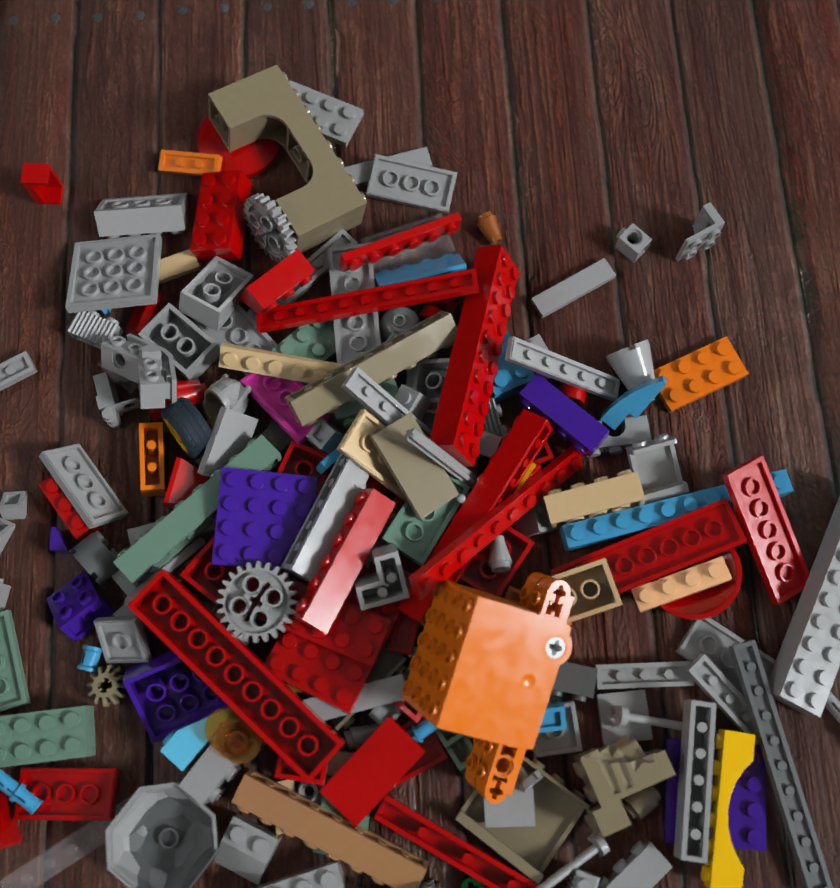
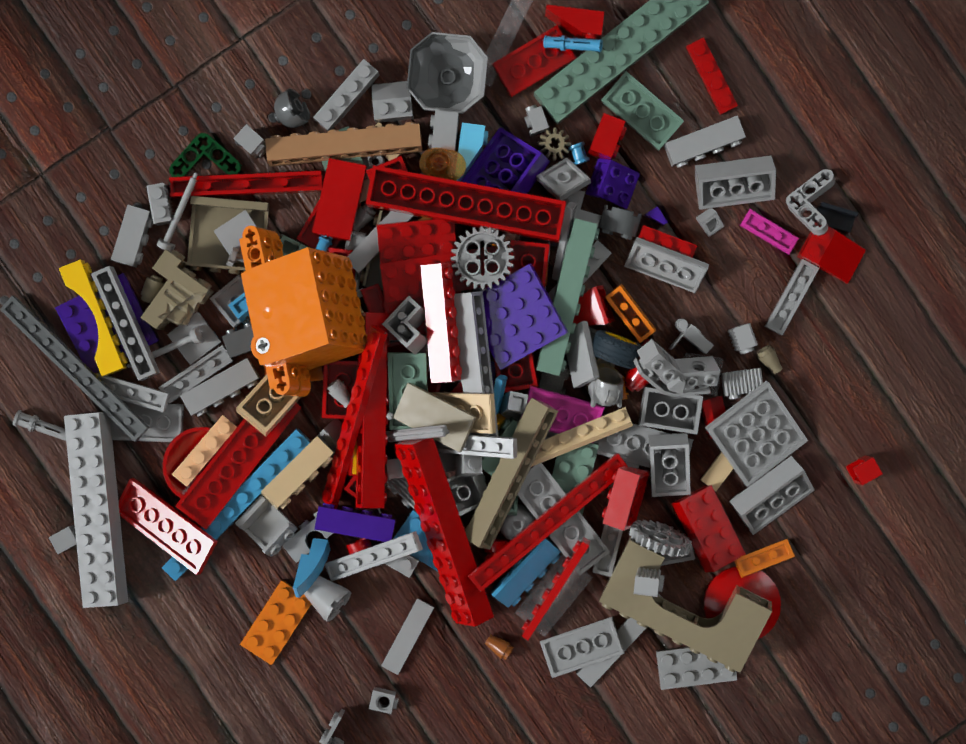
camera: 150 degrees right, 15 degrees up
(46, 656) = (607, 136): none -> red brick
(54, 337) = (769, 358): none -> dark tan cone
(62, 368) = (743, 338): none -> light grey brick
(108, 725) = (536, 120): none -> light grey brick
(304, 181) = (648, 582): none -> light grey brick
(625, 644) = (220, 386): none -> light grey brick

